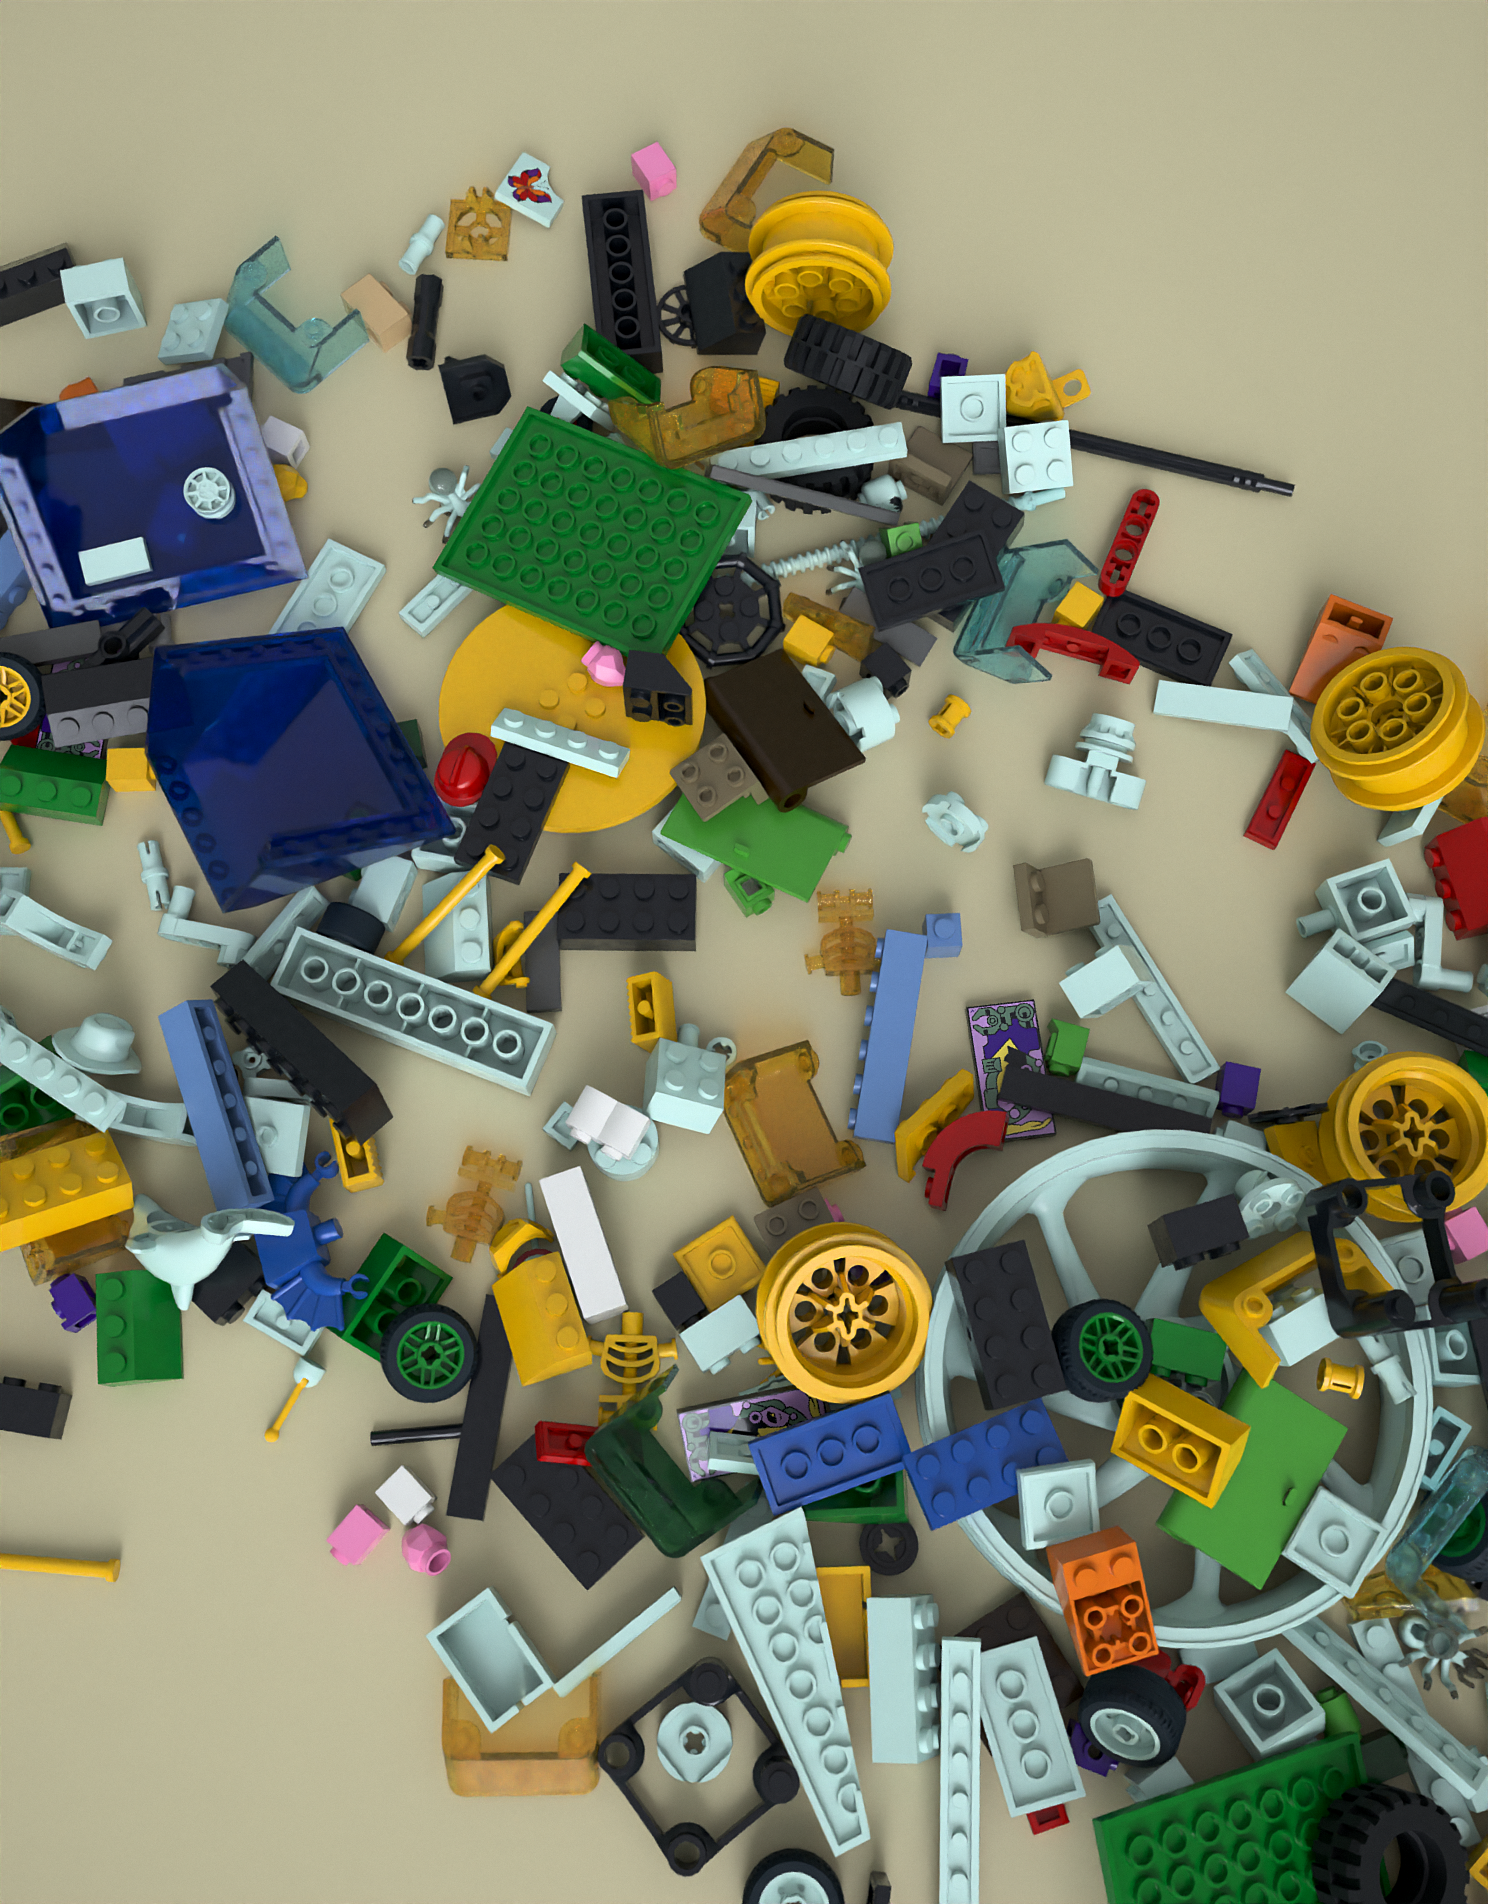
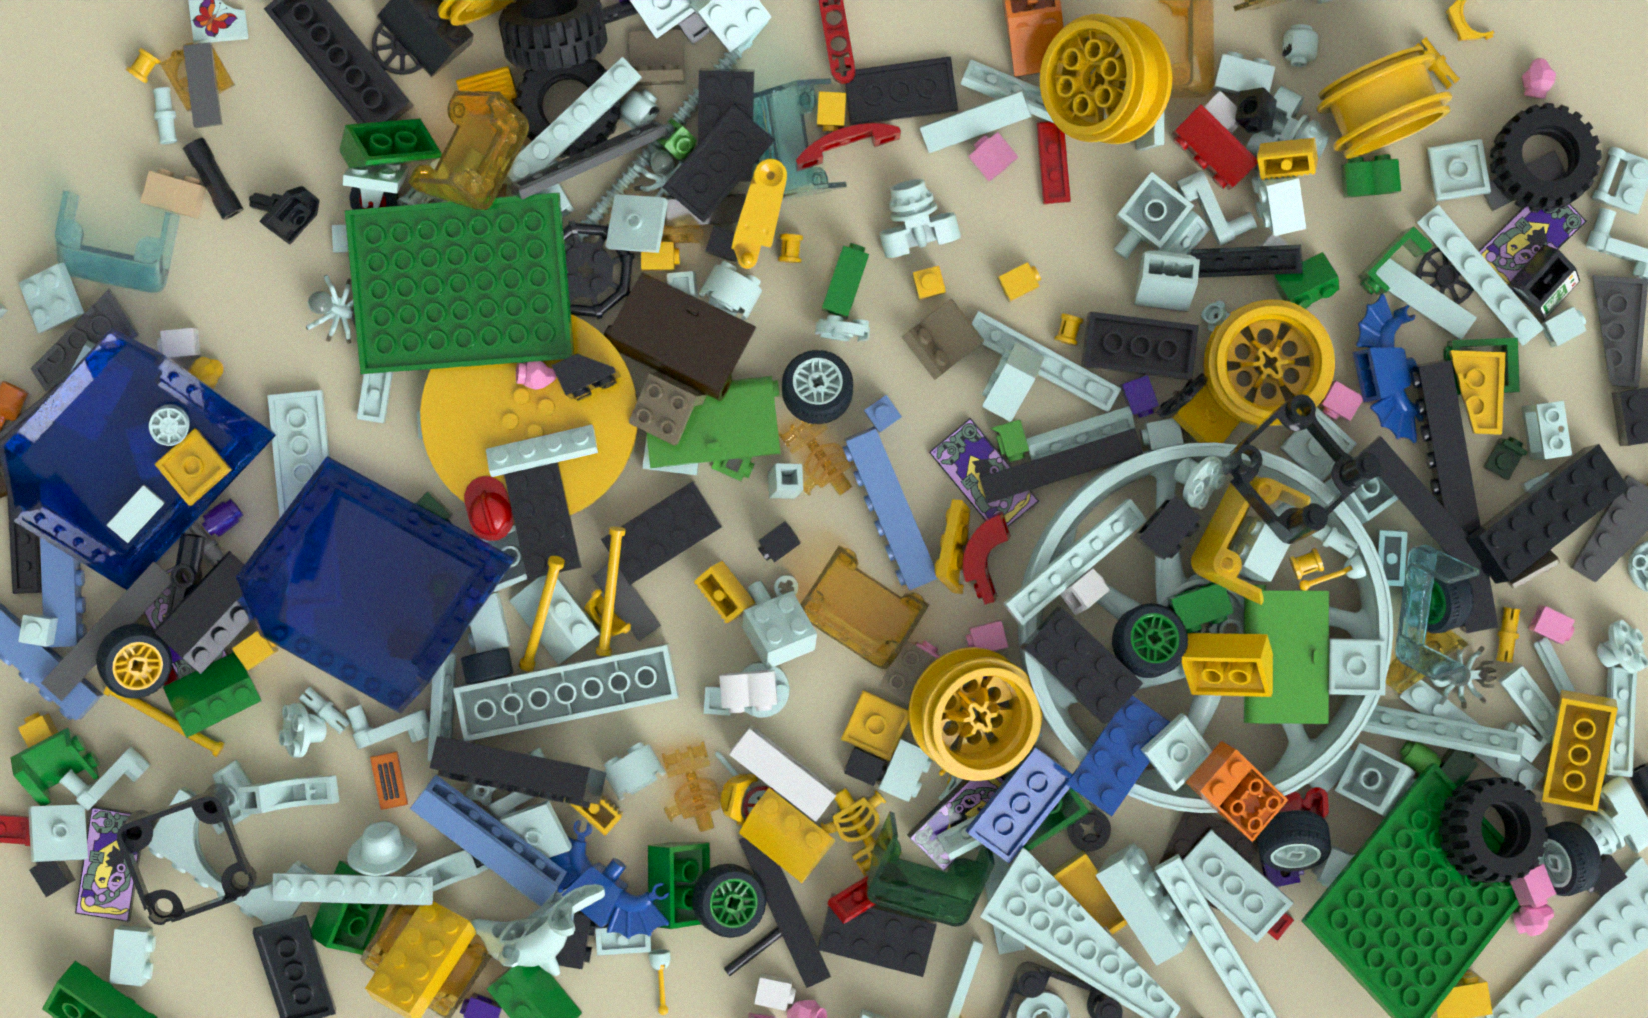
camera: 30 degrees left, 15 degrees up
(116, 876) = (300, 729): none -> light aqua plate
(165, 987) = (389, 780): none -> orange tile
(197, 625) = (222, 518): none -> dark purple brick
(203, 549) = (193, 466): none -> yellow plate
(424, 1139) = (633, 770): none -> light aqua brick
(434, 191) = (143, 65): none -> yellow bush
(475, 227) = (202, 85): none -> dark grey tile
(745, 994) = (778, 542): none -> black brick
(793, 938) = (785, 481): none -> light aqua brick
(809, 590) = (636, 223): none -> light aqua plate
(890, 863) = (817, 387): none -> wheel
(913, 1241) = (987, 636): none -> bright pink brick
(947, 641) = (759, 212): none -> yellow piece
(992, 772) = (845, 280): none -> green window
(1057, 1246) = (1085, 591): none -> white brick
(1065, 1204) = (1074, 562): none -> light aqua plate
(1075, 834) = (928, 282): none -> yellow brick
(1173, 892) = (1019, 281): none -> yellow brick
(1197, 973) = (1068, 329): none -> yellow bush
(1221, 750) = (992, 155): none -> bright pink brick
(1270, 1034) = (1140, 346): none -> black brick
(1394, 1418) = (1352, 568): none -> hinge

